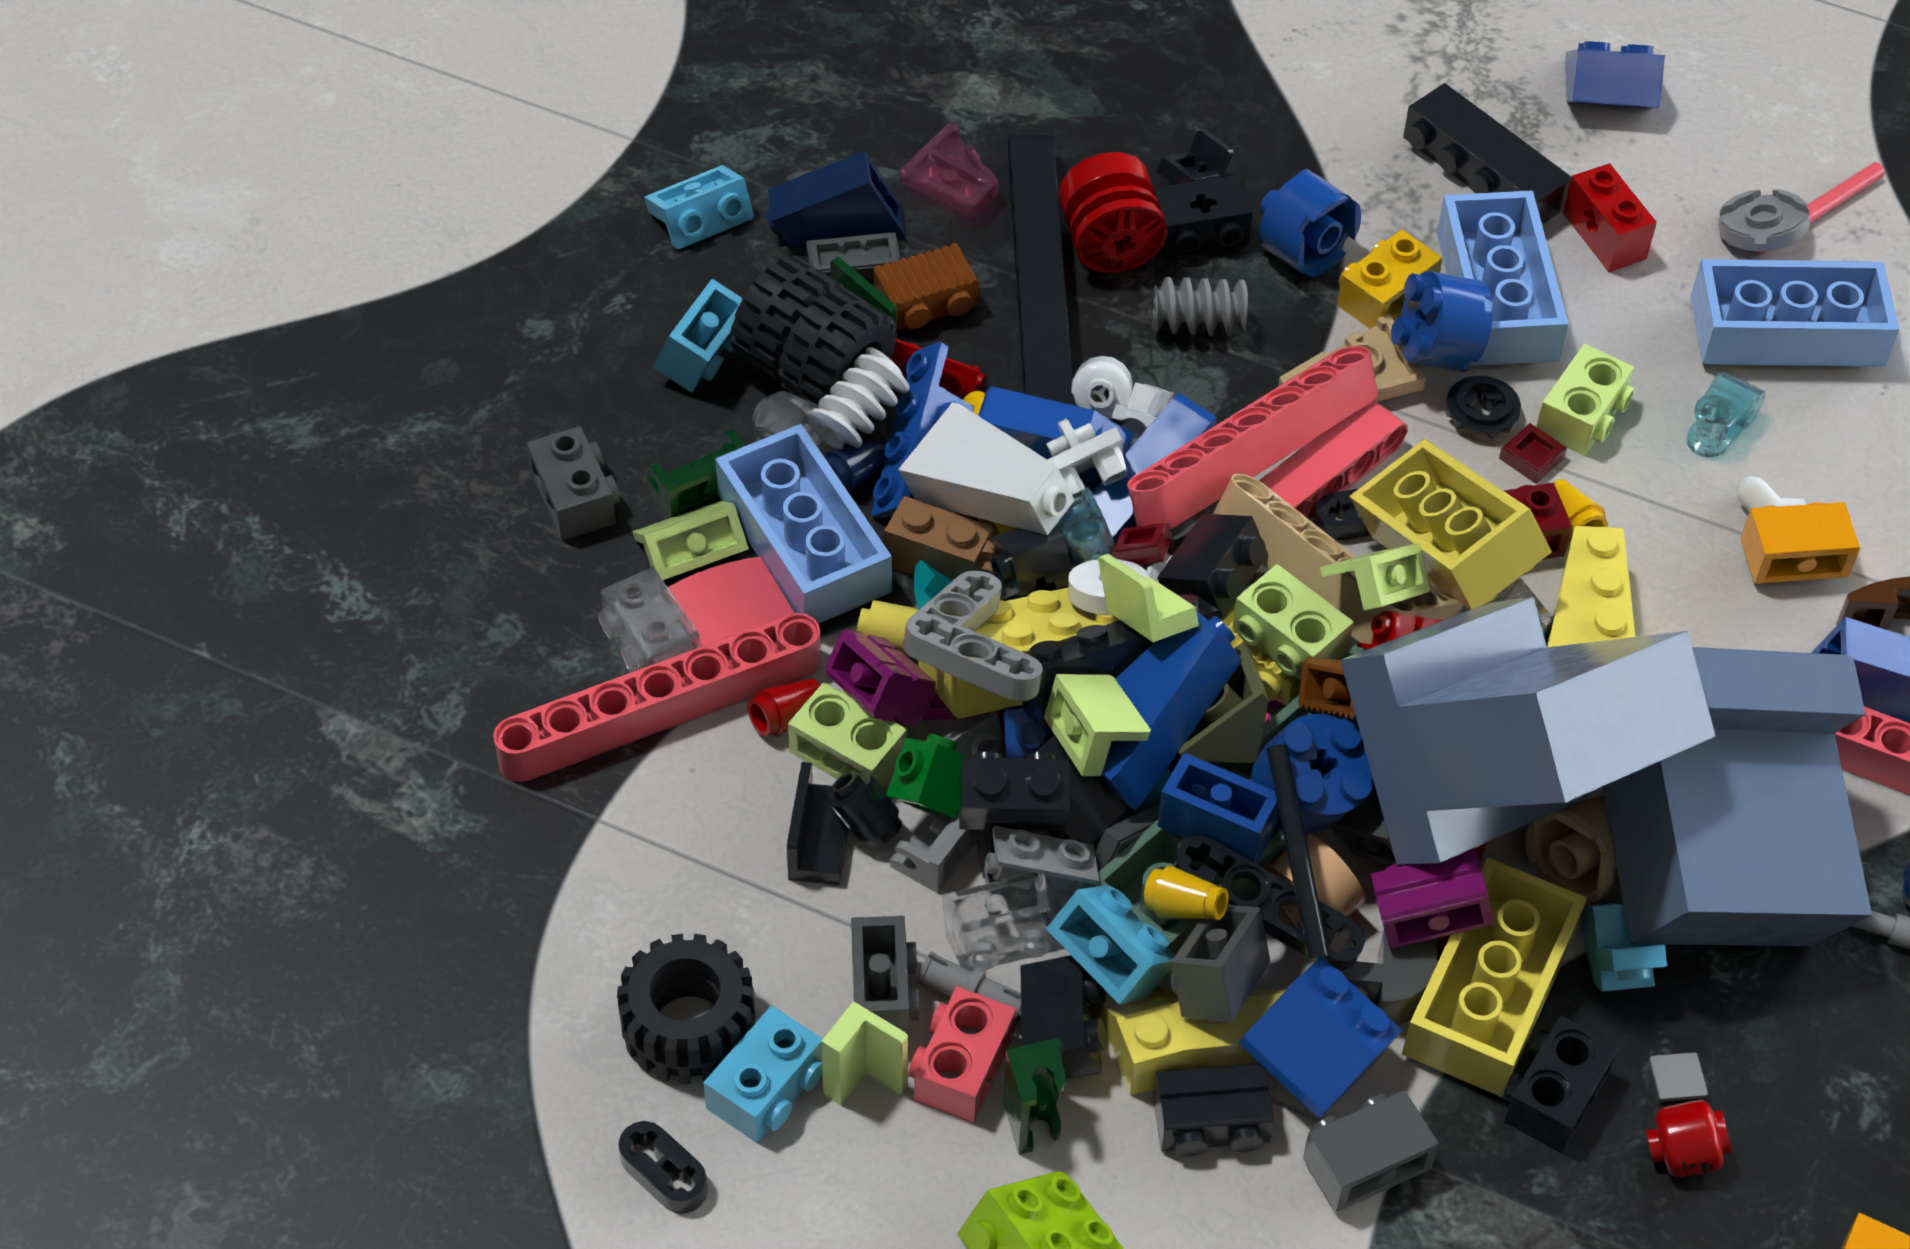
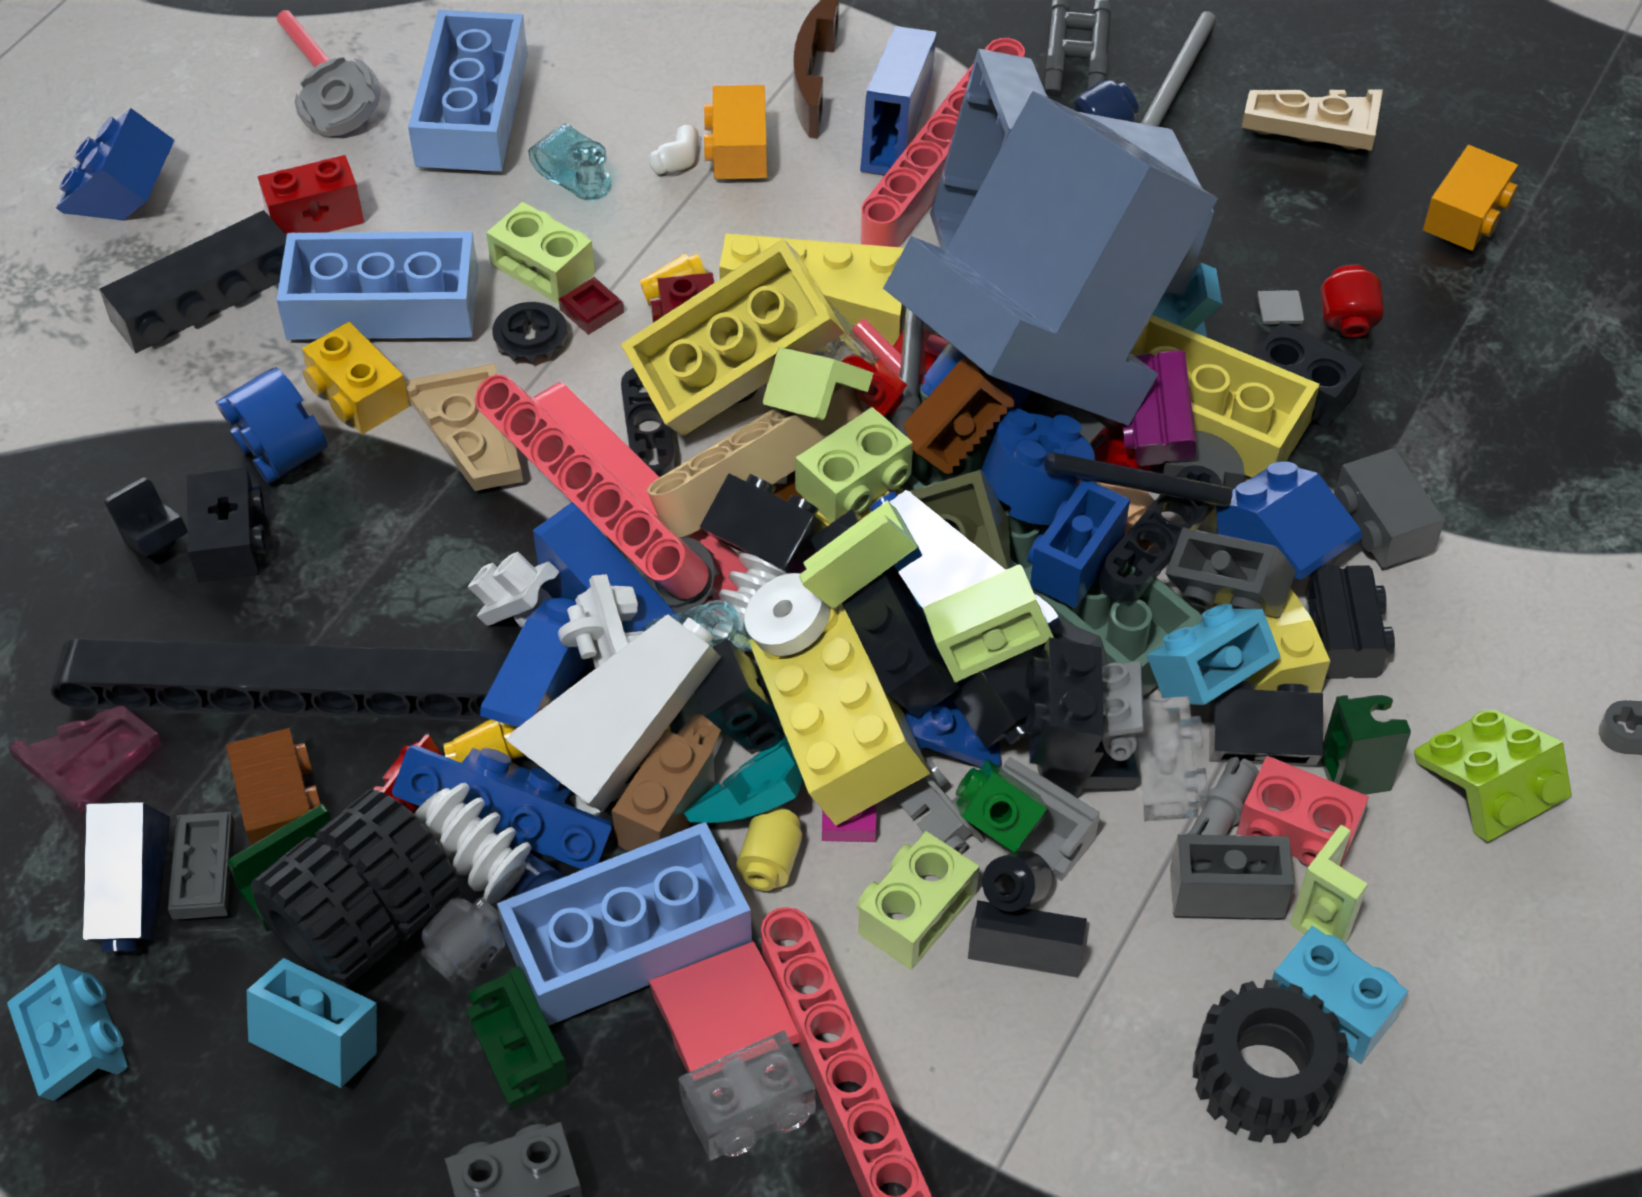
camera: 85 degrees left, 0 degrees up
(654, 1175) = (1433, 1091): black beam -> none
(693, 539) = (608, 1054): yellowish green panel -> none
(777, 705) = (867, 963): red cone -> none
(880, 678) = (857, 851): magenta brick -> none
(948, 640) = (871, 748): light grey beam -> none
(1104, 372) = (466, 624): white head -> none
(1112, 212) = (226, 588): red wheel -> none
(1143, 544) = (729, 581): dark red tile -> none
(1183, 896) = (1171, 584): yellow cone -> none
(1200, 306) = (361, 533): light grey piece -> none
(1443, 321) = (451, 322): blue brick -> none

